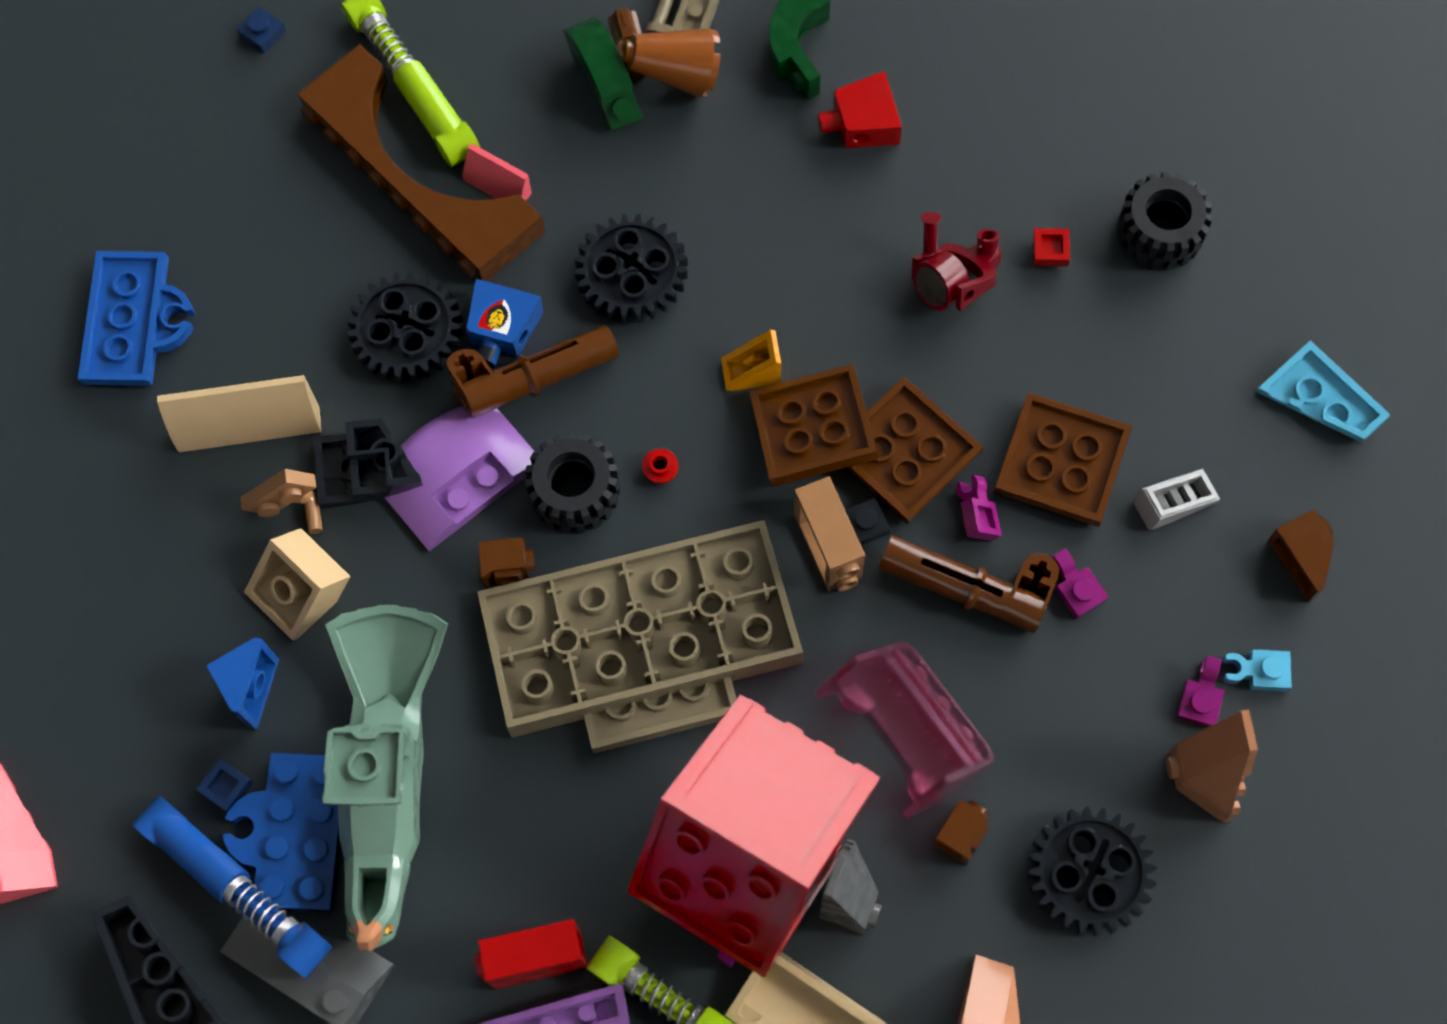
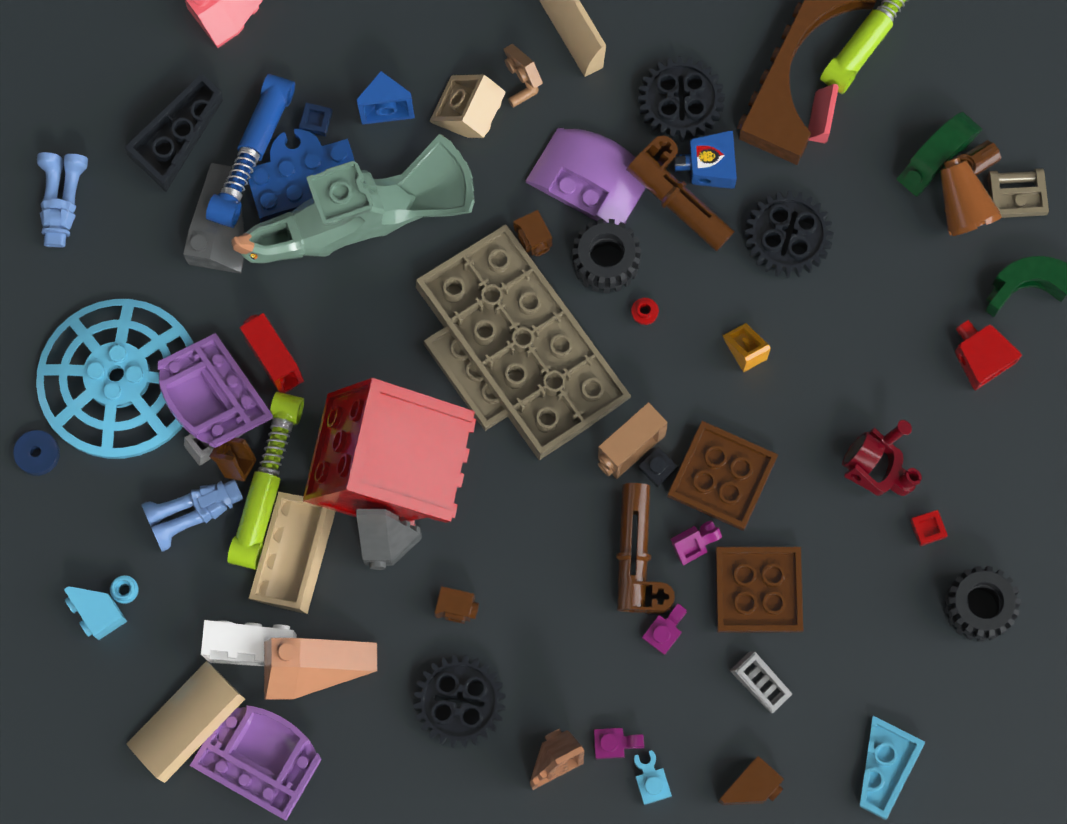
camera: 70 degrees right, 5 degrees up
(361, 465) = (566, 111): black slope -> none
(813, 425) = (713, 403): reddish brown plate -> none
(916, 717) = (526, 551): clear pink windscreen -> none

